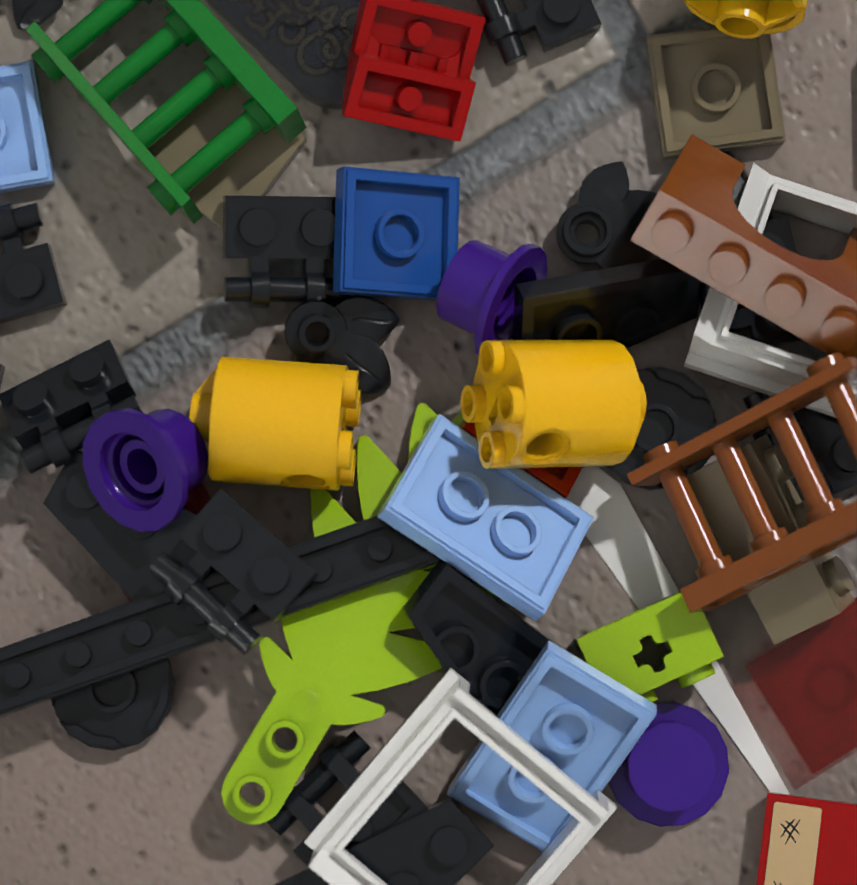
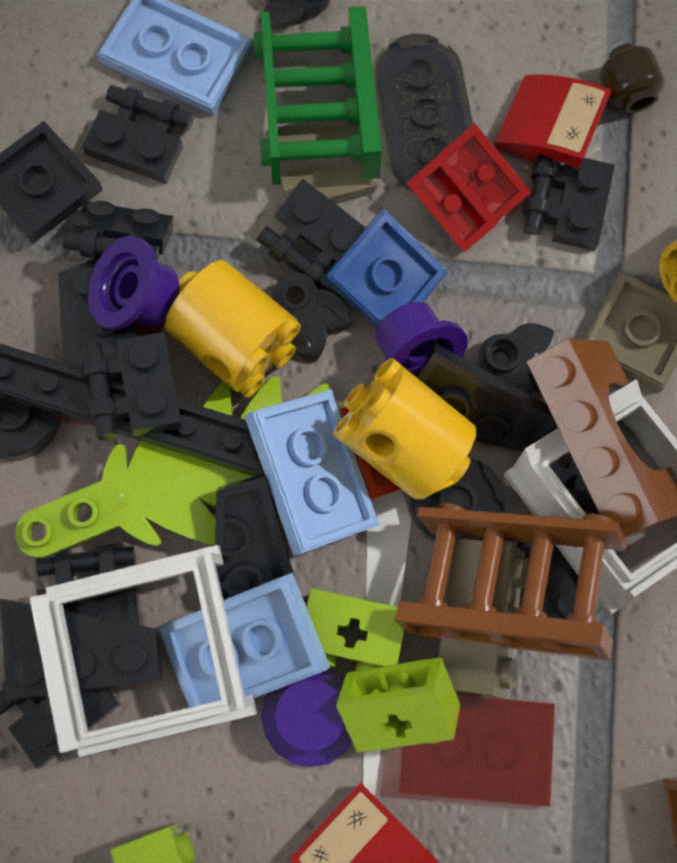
camera: 30 degrees right, 10 degrees down
(753, 691) = (399, 705): none -> lime brick

